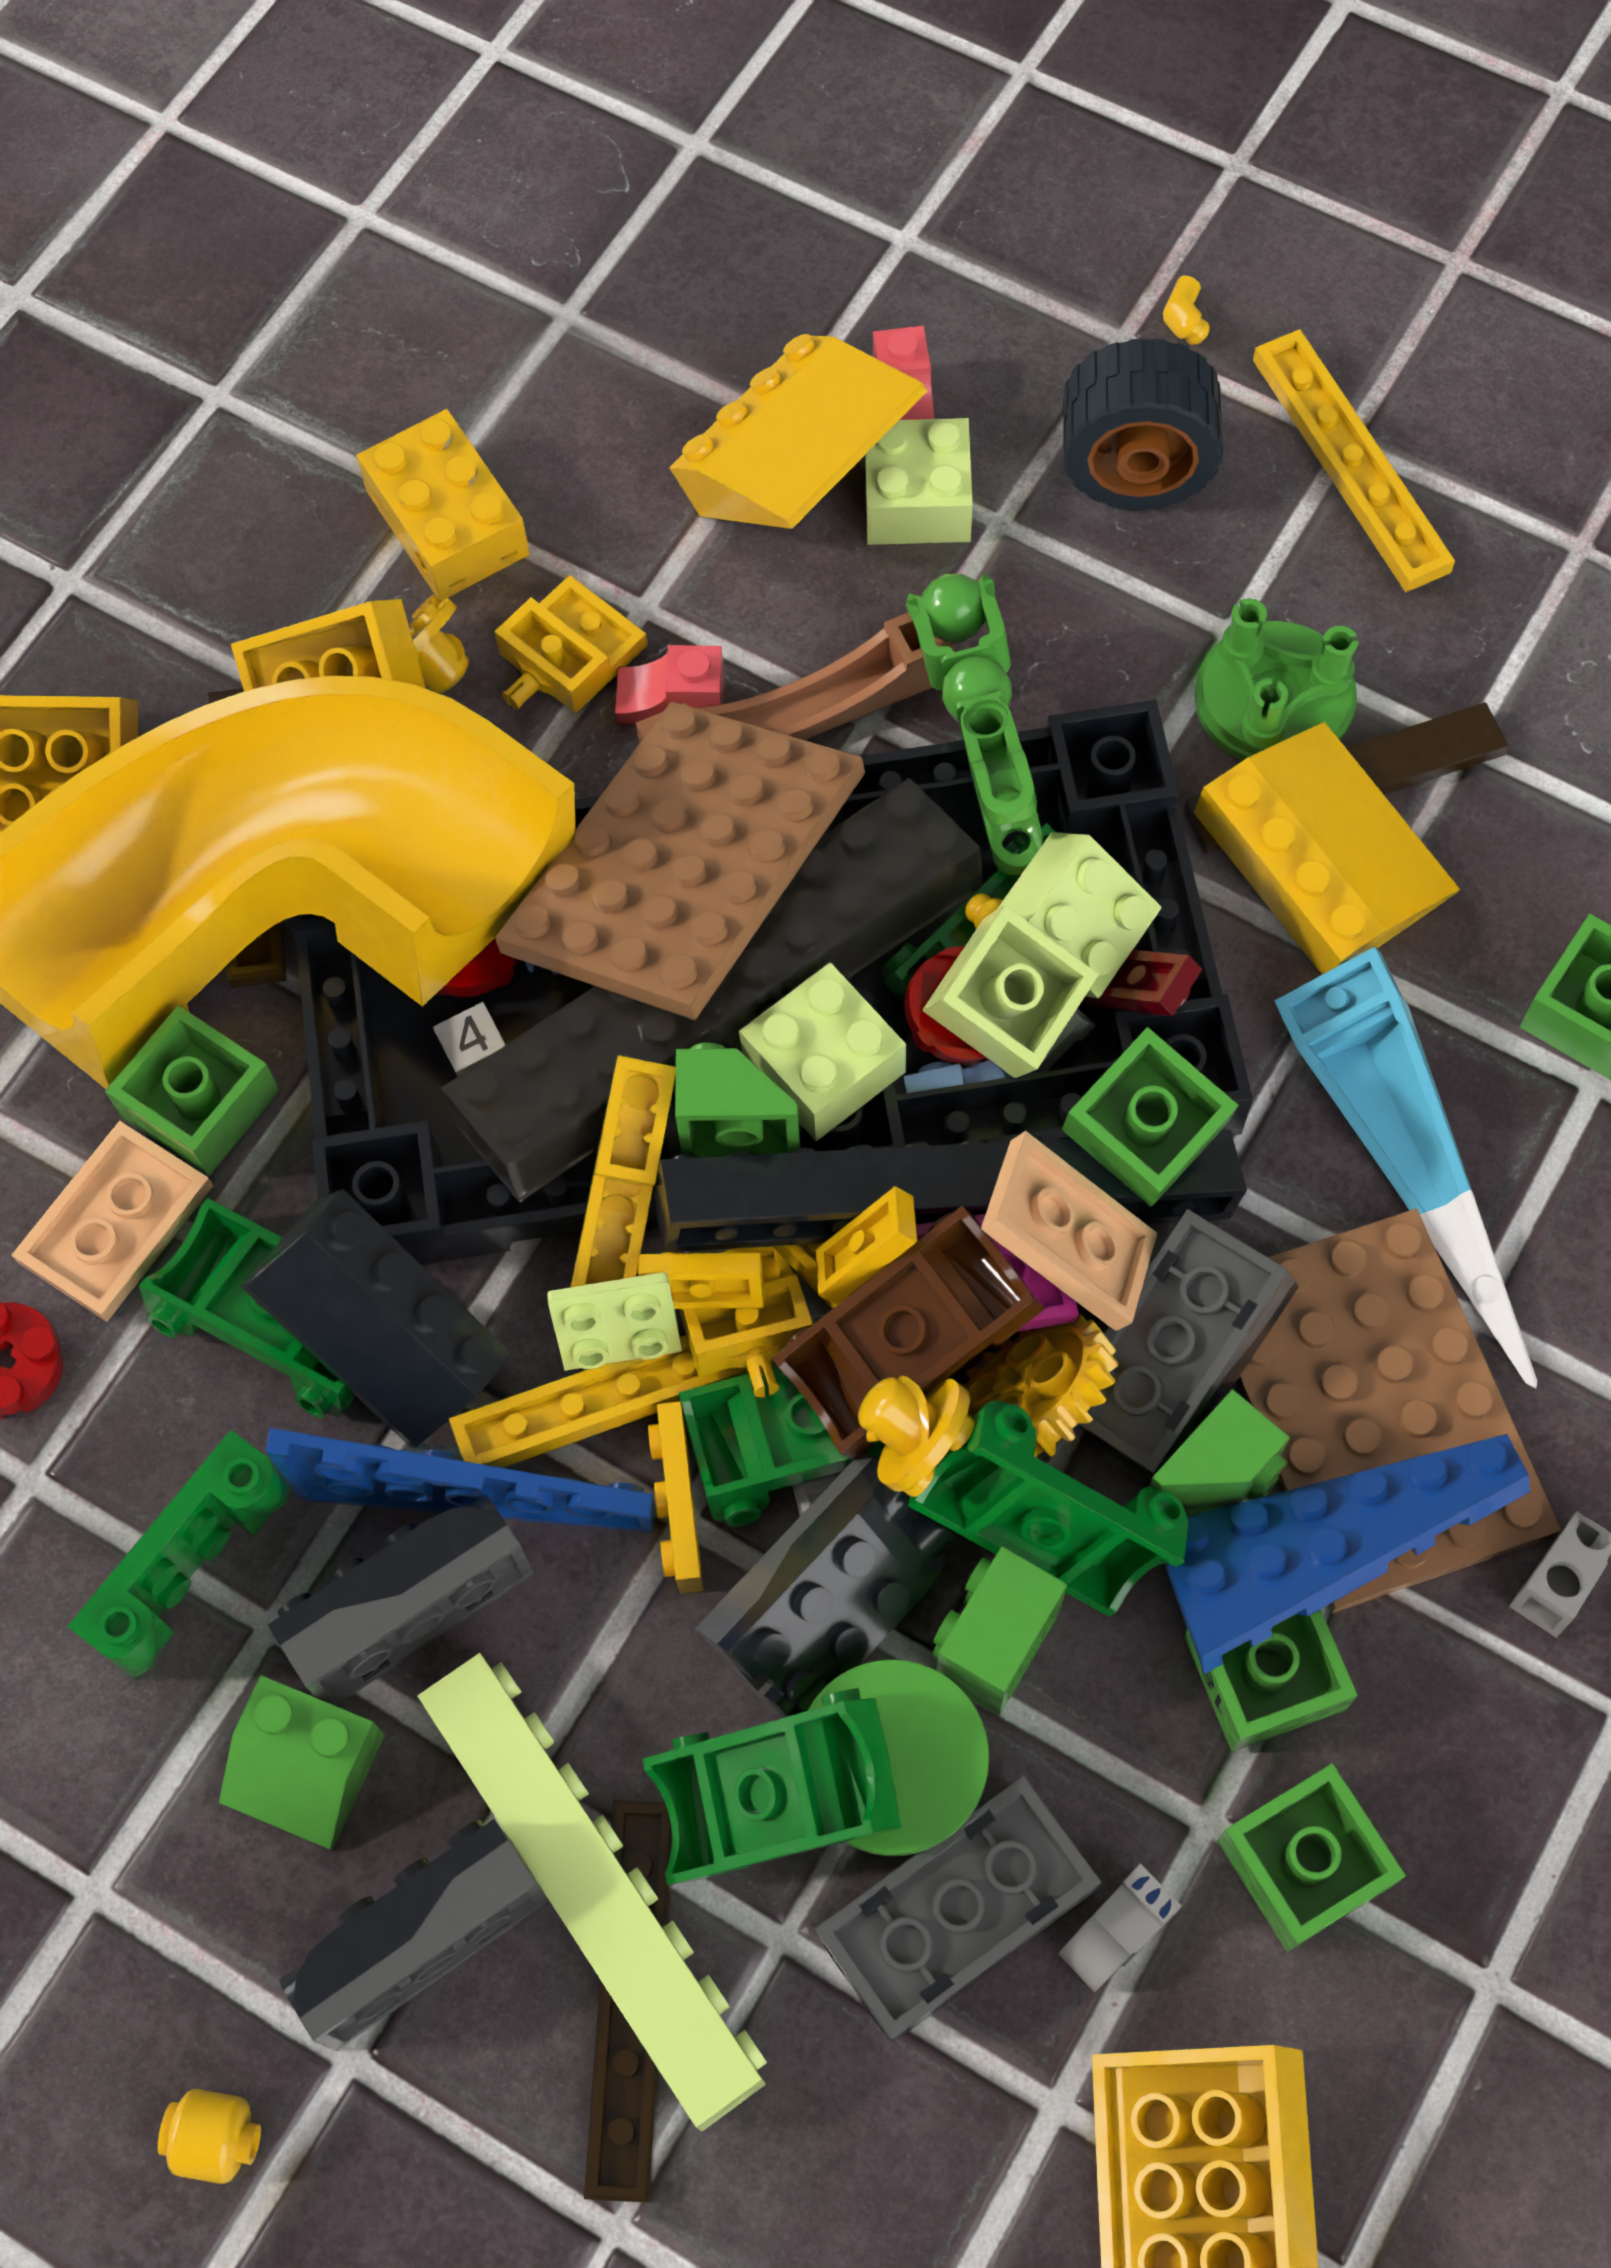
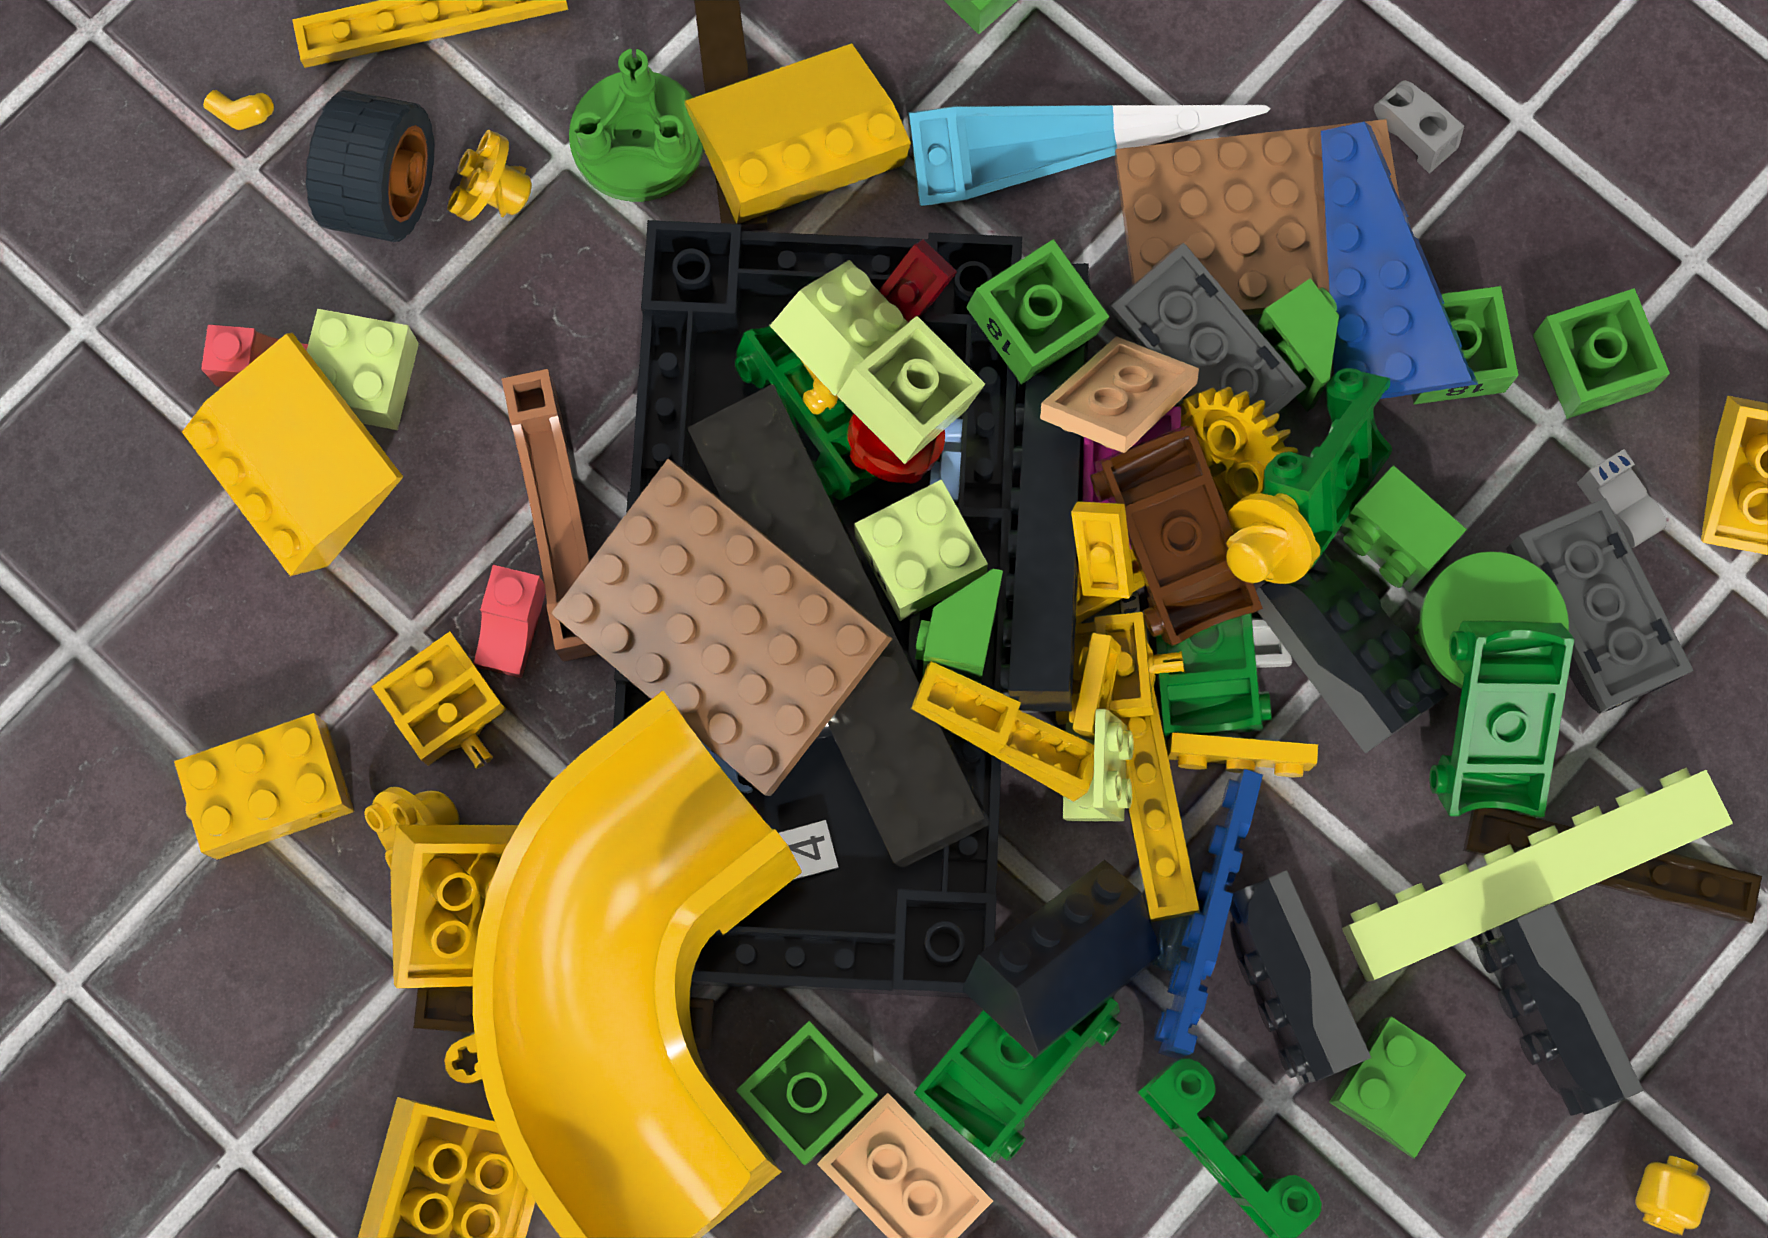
camera: 80 degrees left, 10 degrees up
(978, 698) = (622, 355): bright green piece -> none
(1167, 555) = (489, 180): none -> yellow plate

